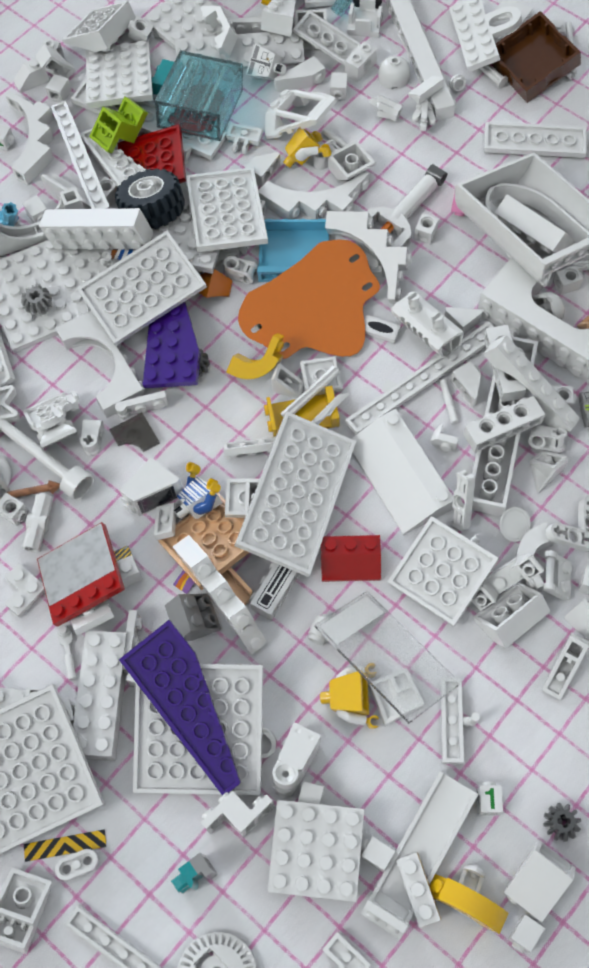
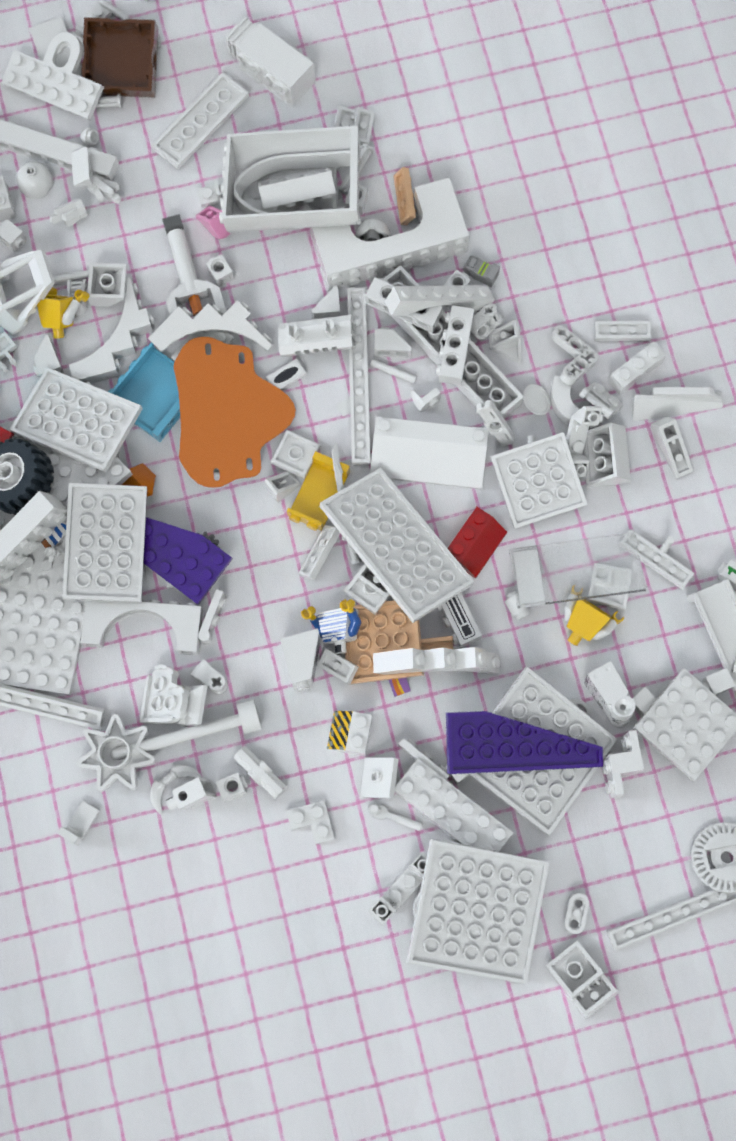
camera: 55 degrees left, 10 degrees up
(36, 300) = (45, 637): light grey gear -> none
(51, 486) = (233, 740): nougat piece -> none
(64, 845) = (553, 914): sticker -> none
(80, 574) = (339, 764): flat silver plate -> none
(135, 432) = (233, 638): clear smoke tile -> none
(192, 872) = (644, 826): hips -> none
(193, 615) = (436, 697): light grey slope -> none
(242, 269) = (141, 449): white piece -> none
(251, 369) = (253, 497): yellow arch -> none
(312, 391) = (308, 473): white axle -> none

